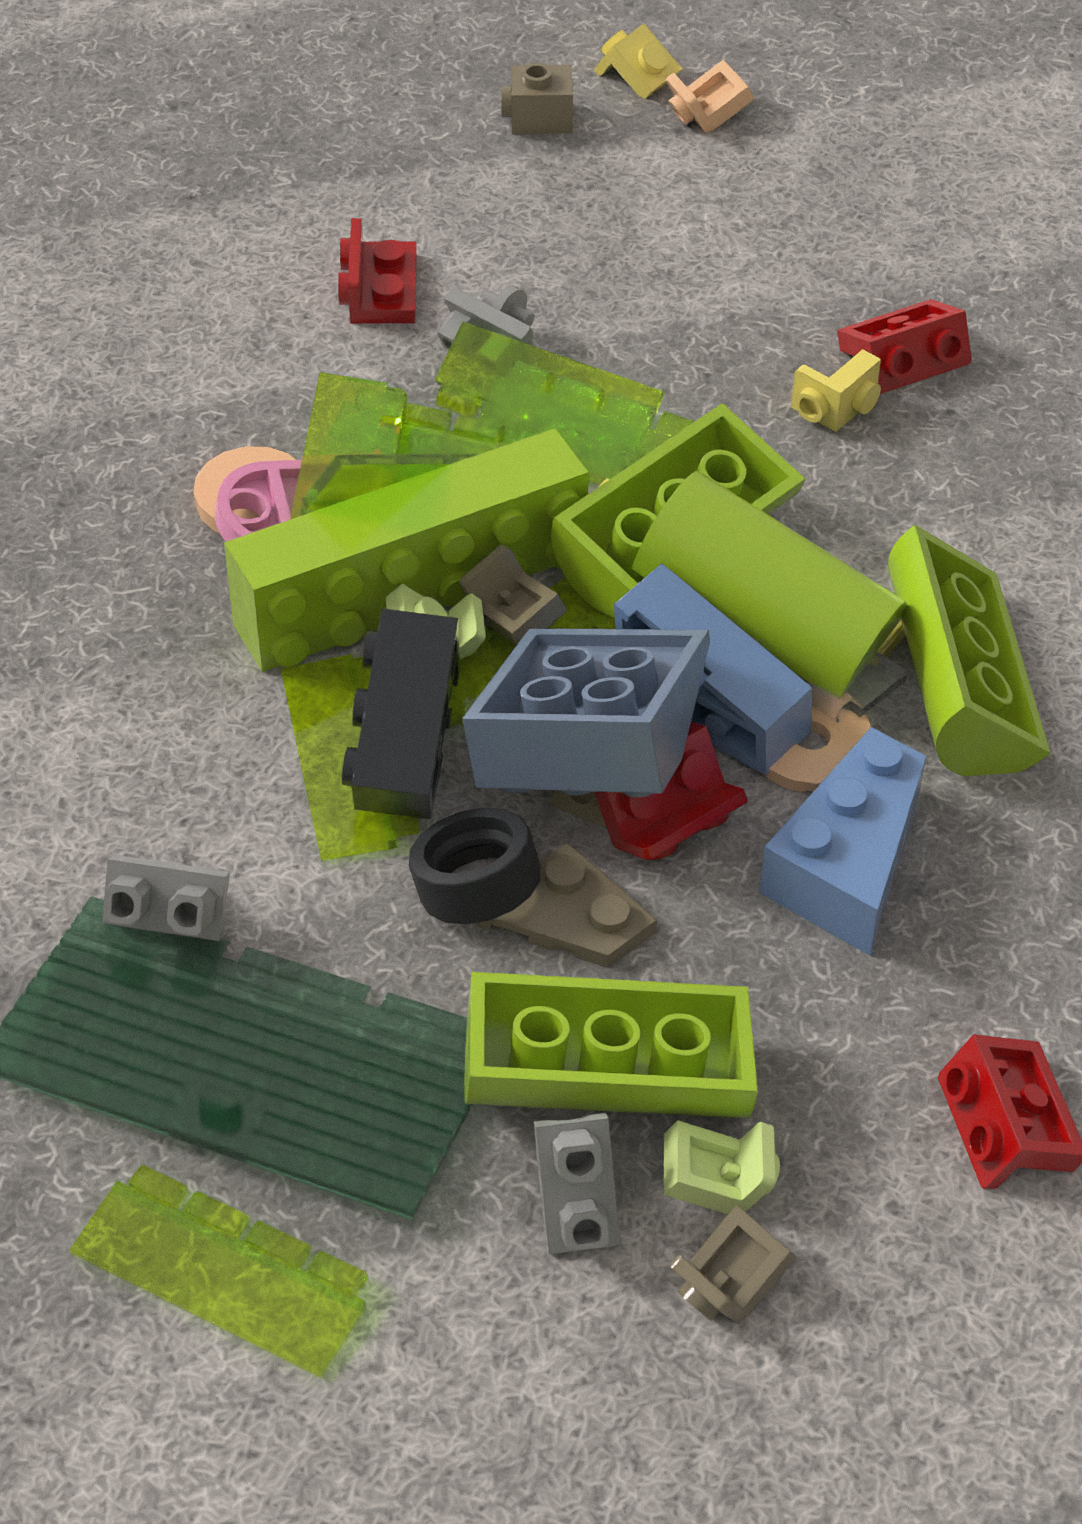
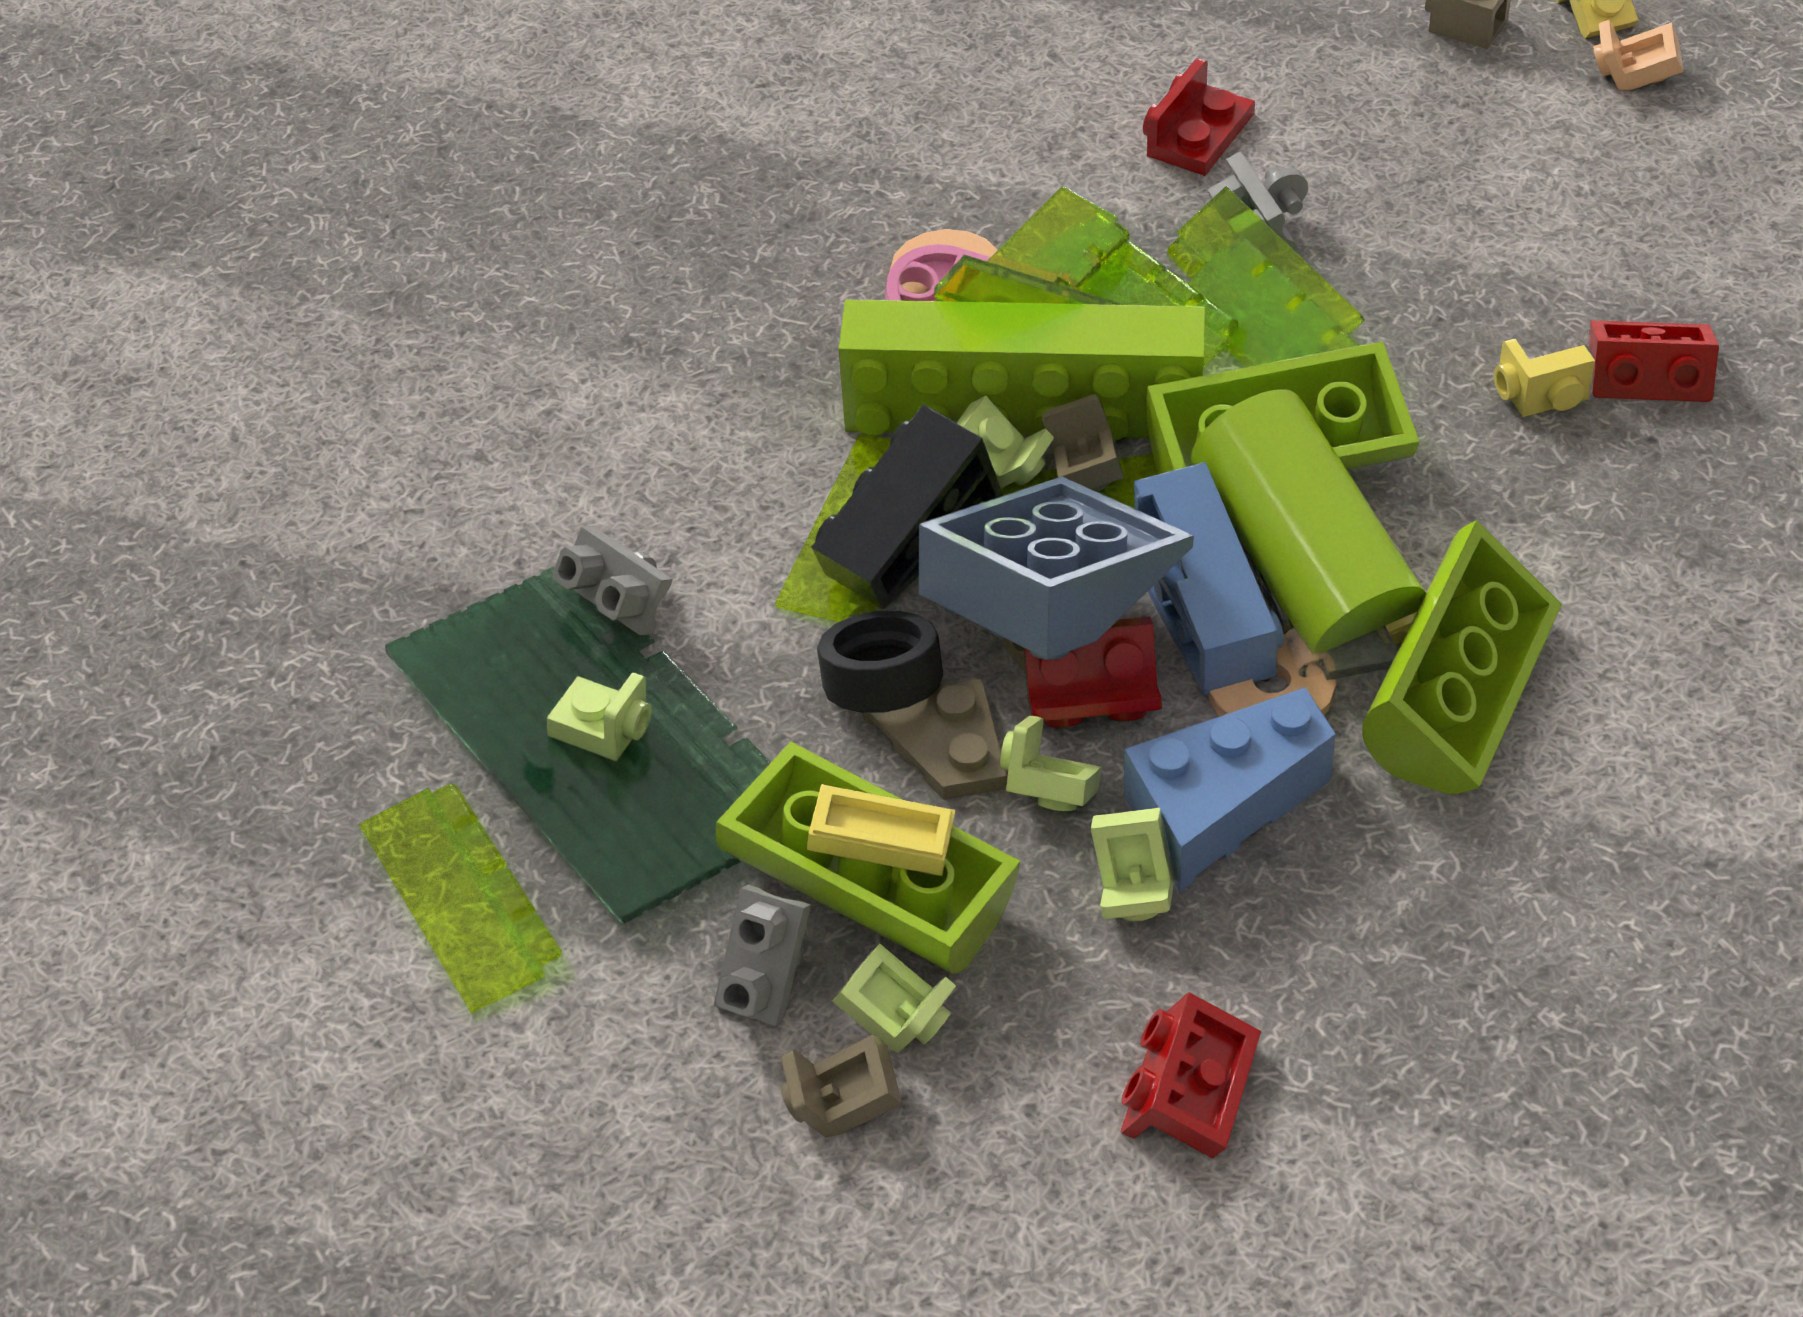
camera: 35 degrees right, 0 degrees up
(250, 1033) = (600, 716): none -> yellowish green bracket
(620, 1014) = (881, 830): none -> light yellow tile
(698, 906) = (1055, 781): none -> yellowish green bracket
(833, 947) = (1133, 864): none -> yellowish green bracket

